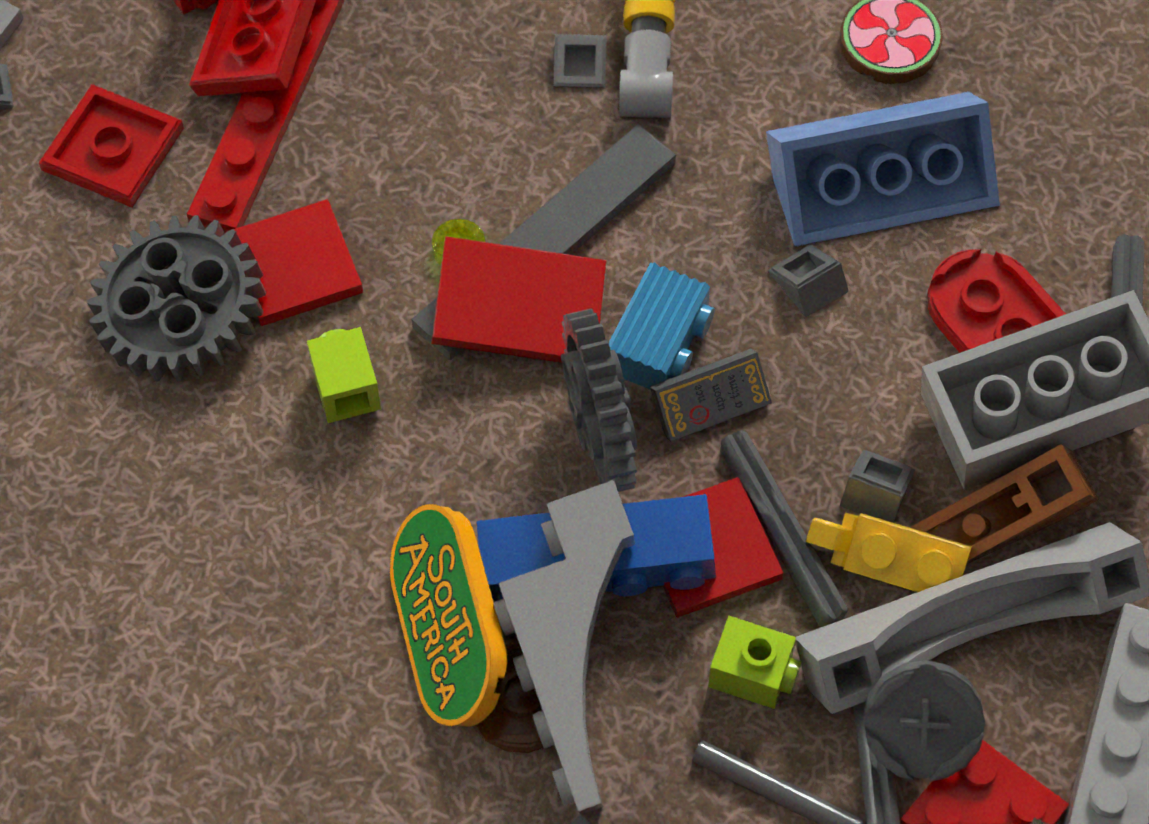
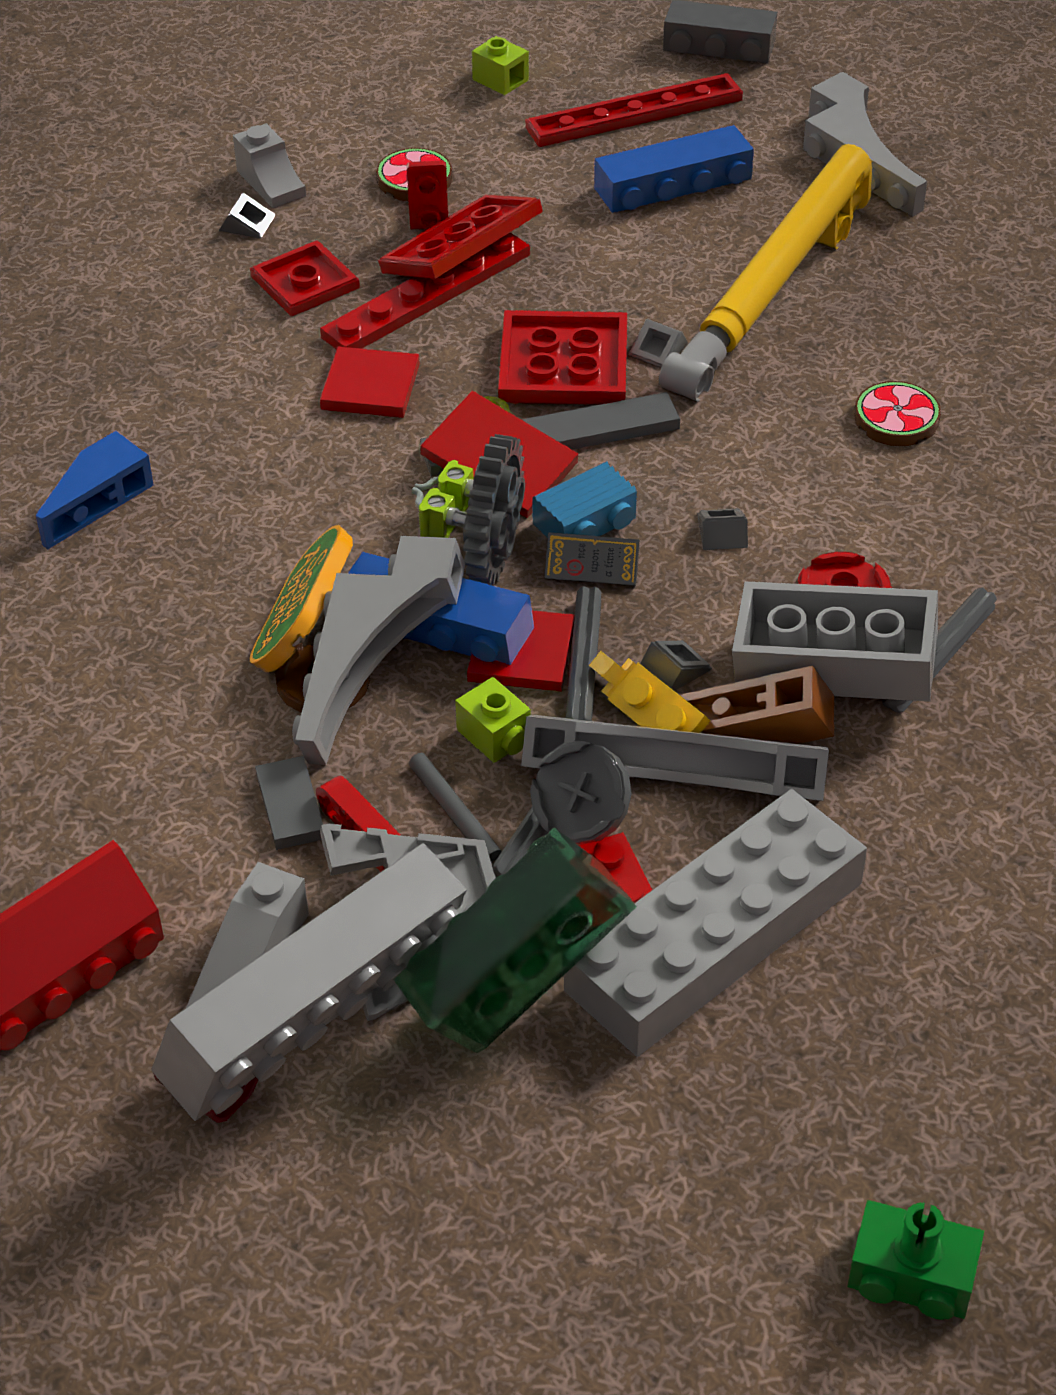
camera: 30 degrees right, 15 degrees down
(88, 555) = (93, 486): none -> blue slope
(198, 259) = (253, 367): dark grey gear -> none
(344, 374) = (343, 437): lime brick -> none
(493, 127) = (563, 357): none -> red plate
(508, 412) = (445, 505): none -> lime piece
(884, 167) = (826, 479): medium blue slope -> none

